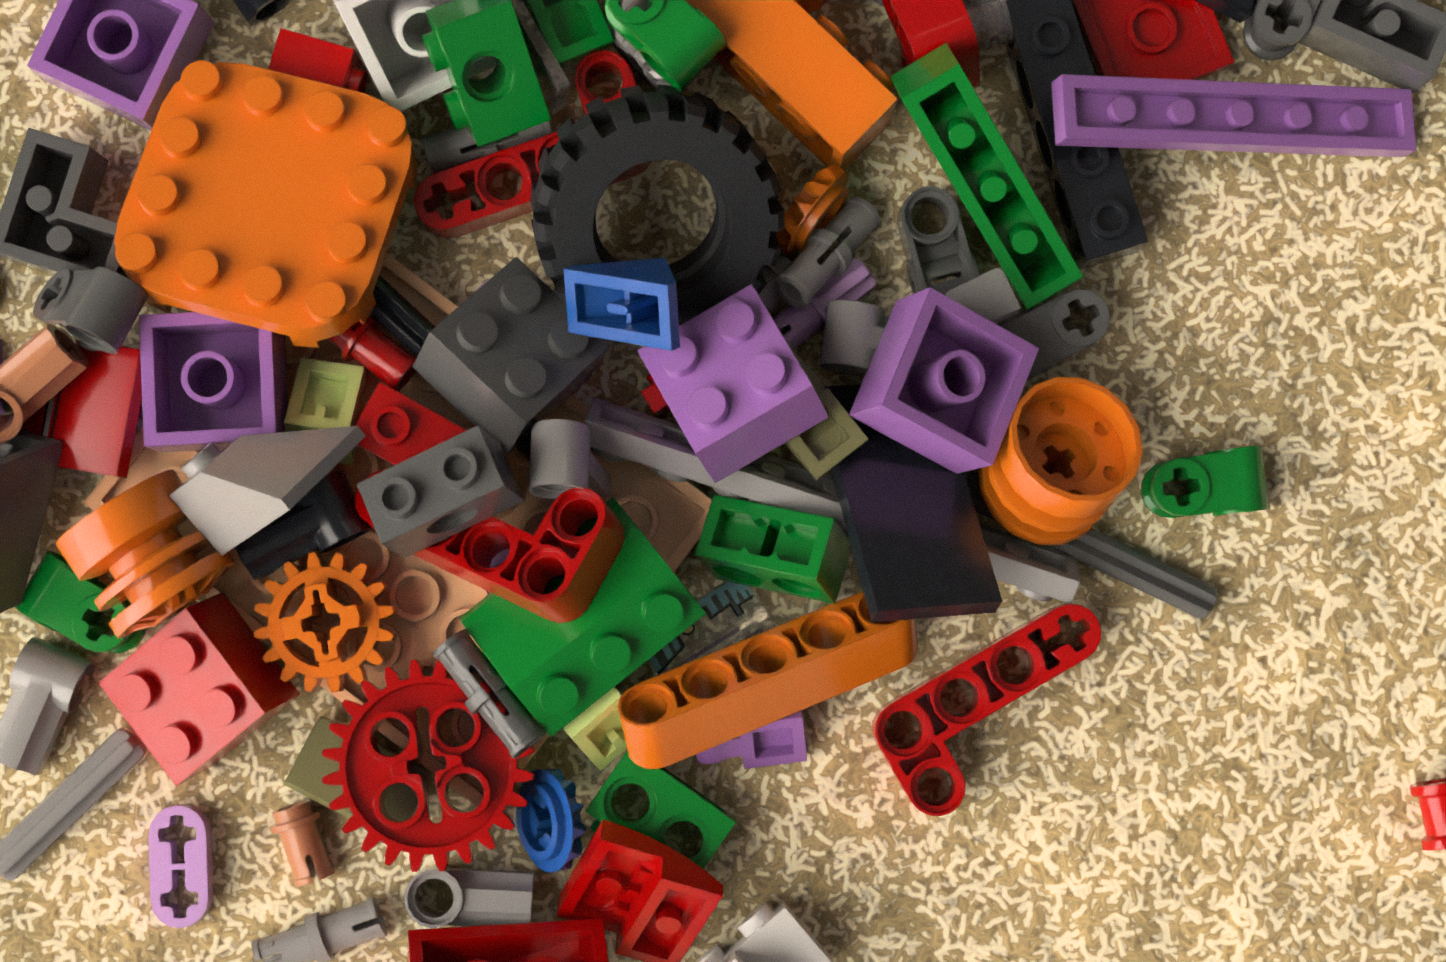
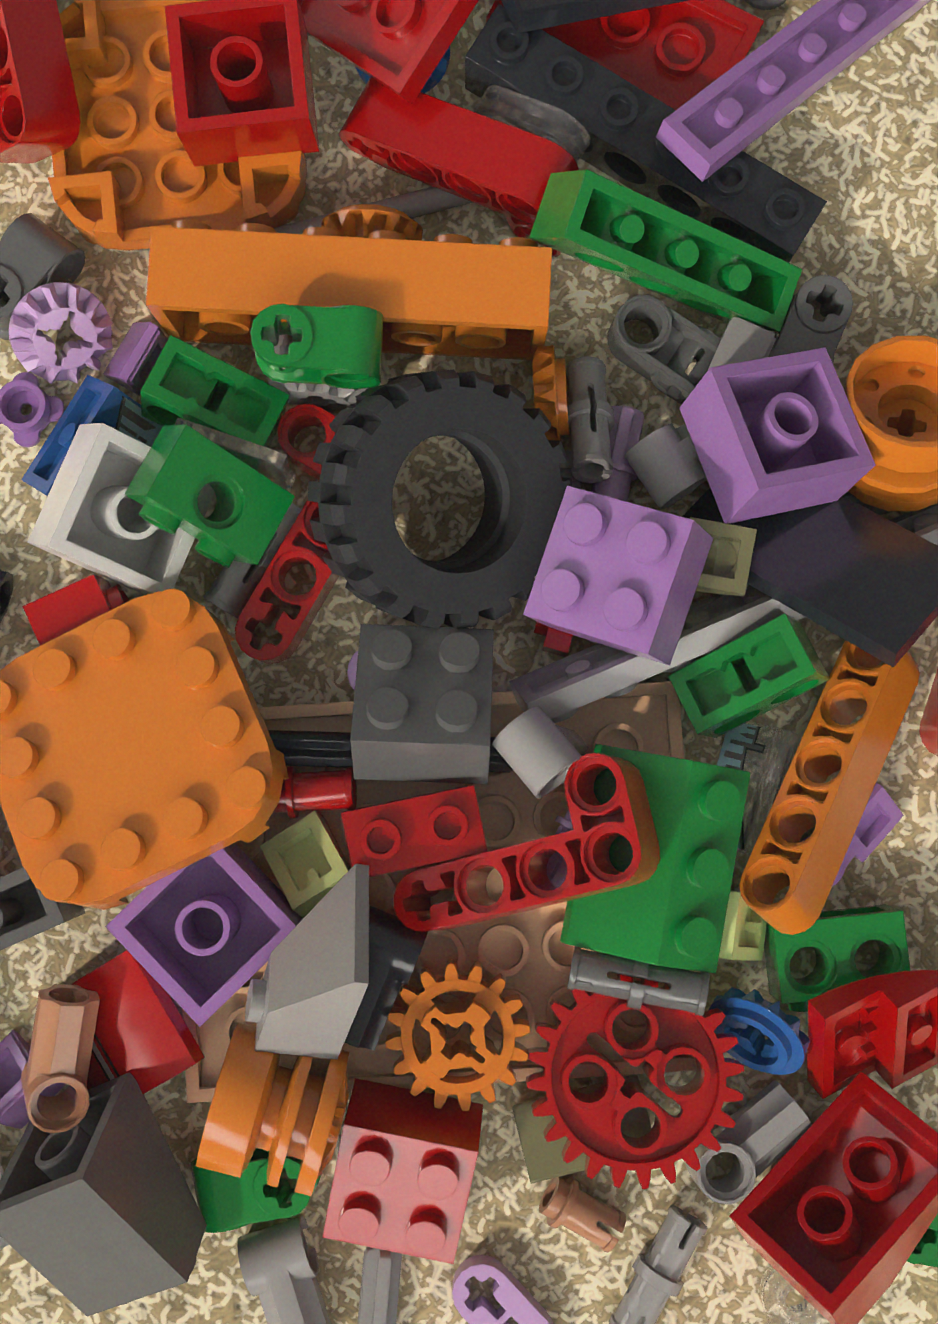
camera: 45 degrees left, 0 degrees up
(91, 306) = (61, 952): dark grey piece -> none
(440, 492) = (470, 861): dark grey brick -> none
(624, 302) = (486, 583): blue slope -> none

